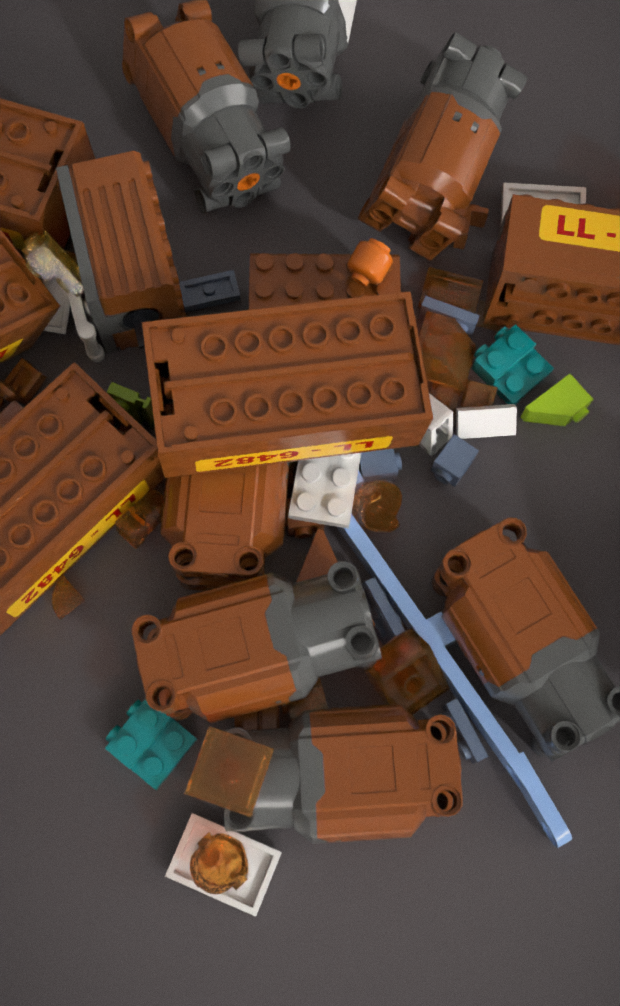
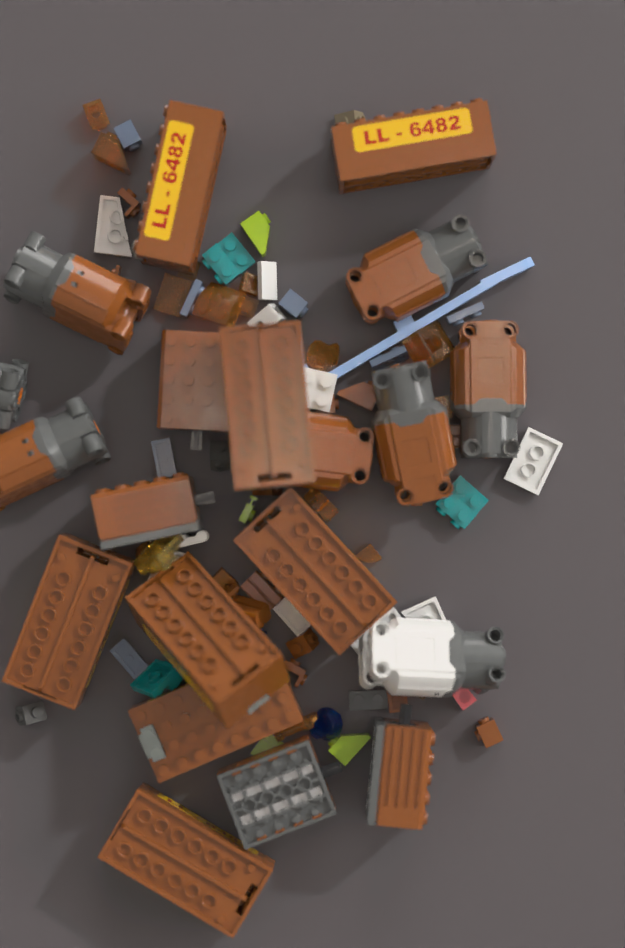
camera: 85 degrees left, 15 degrees up
(219, 863) = (534, 462): clear orange cap -> none
(229, 771) = (488, 451): clear orange plate -> none
(370, 262) = (175, 349): orange head -> none

